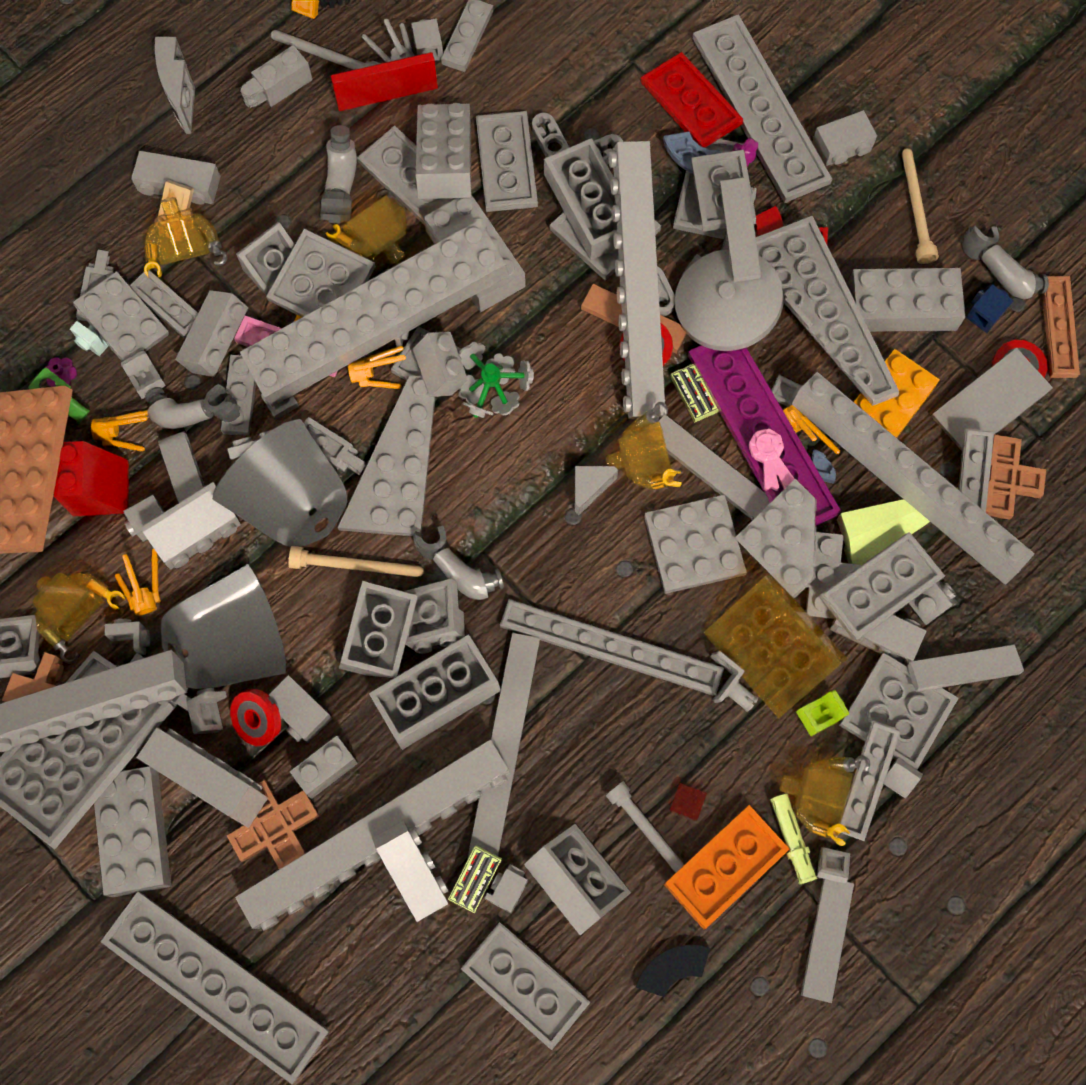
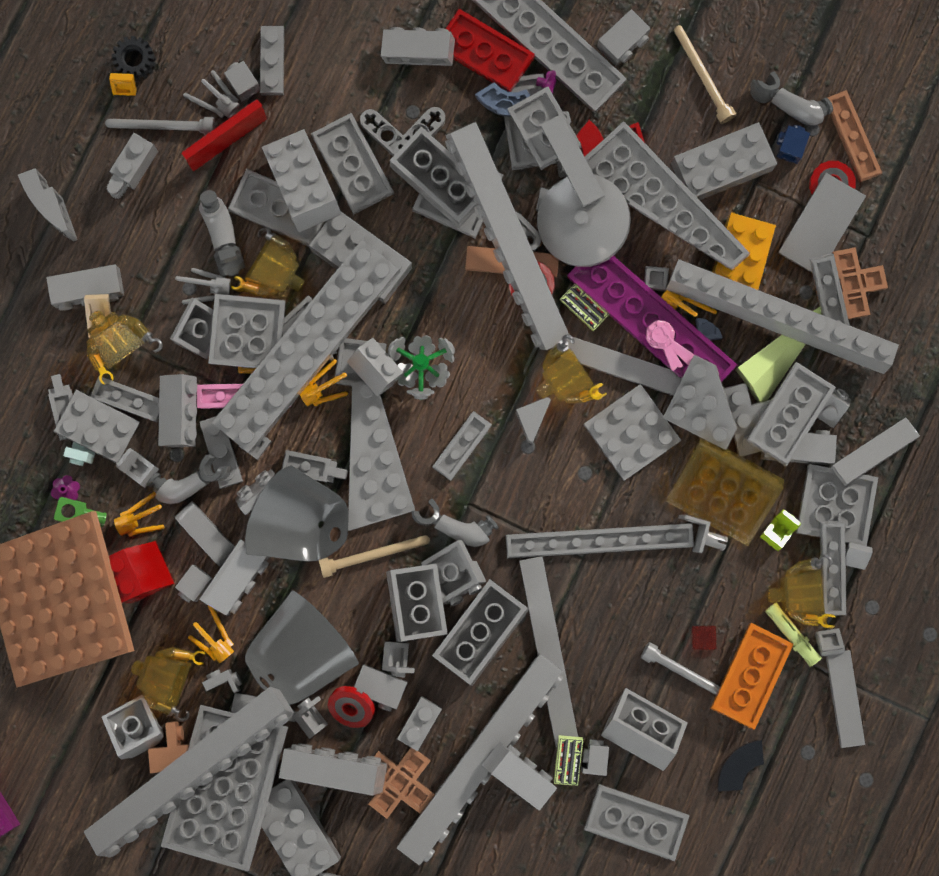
camera: 25 degrees left, 10 degrees up
(310, 223) = (218, 284): none -> light grey plant
(329, 685) = (395, 659): none -> light grey bracket
(500, 487) = (462, 446): none -> light grey tile
(622, 70) = (418, 46): none -> light grey brick

